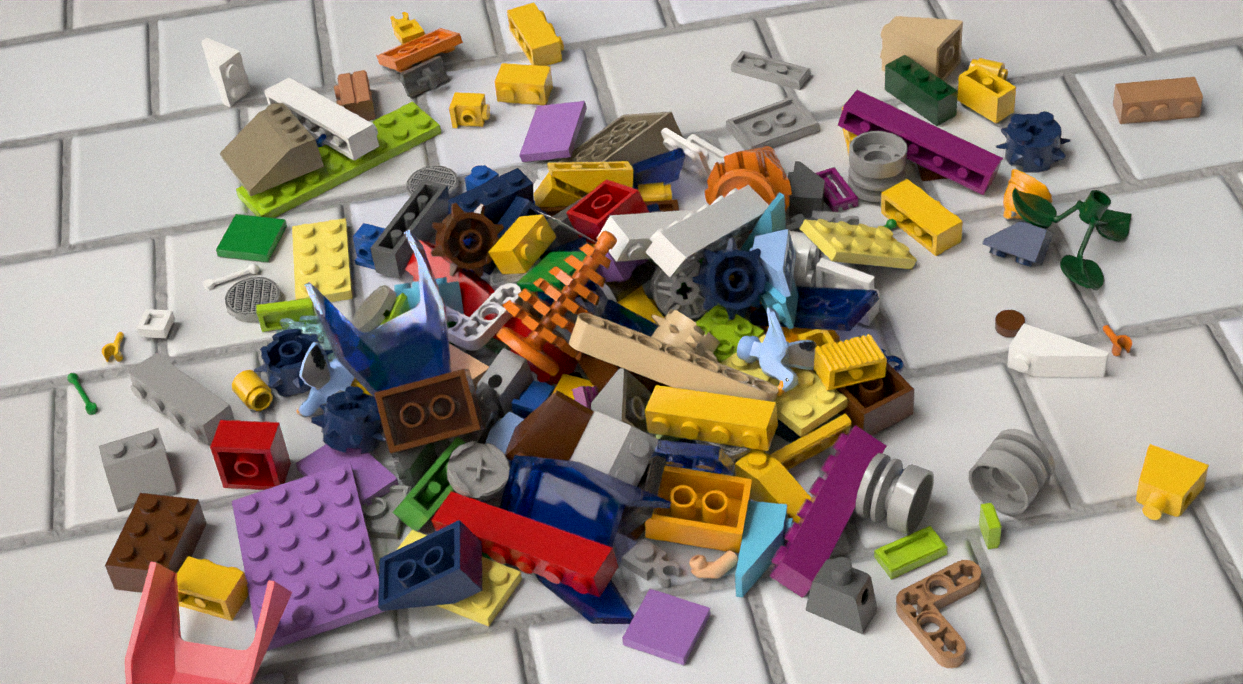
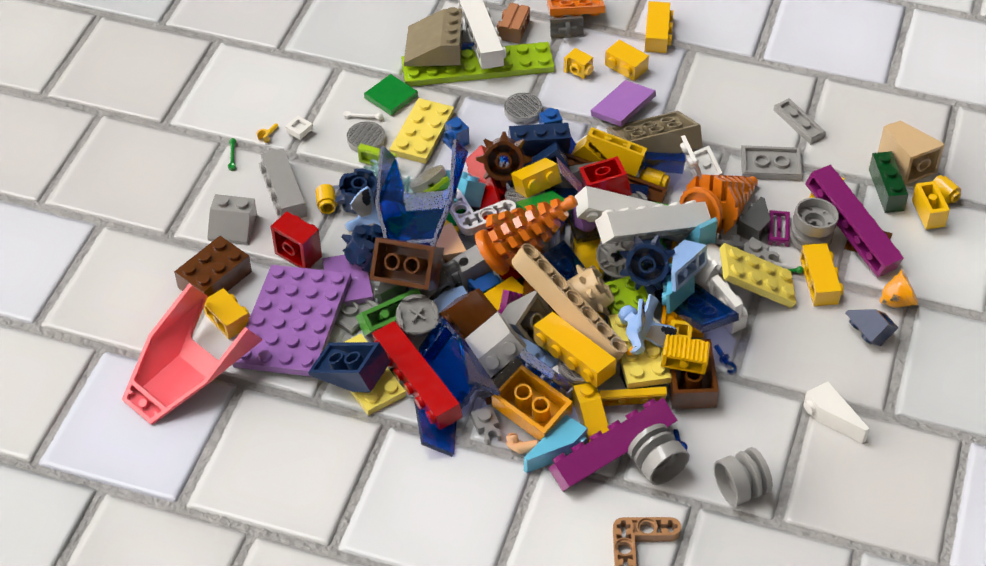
camera: 25 degrees right, 5 degrees up
(426, 205) = (488, 128): dark grey brick -> none
(666, 626) = (468, 468): medium lavender tile -> none
(843, 595) = (581, 503): dark grey torso -> none
(910, 552) = (648, 496): lime tile -> none
(990, 525) = (707, 504): lime tile -> none
(1009, 322) = (825, 374): reddish brown tile -> none
(1033, 141) = (937, 255): dark blue brick -> none
(1093, 211) = (946, 337): dark green plant -> none
(1118, 341) = (888, 422): orange hand -> none
(1169, 482) = (844, 534): yellow torso -> none

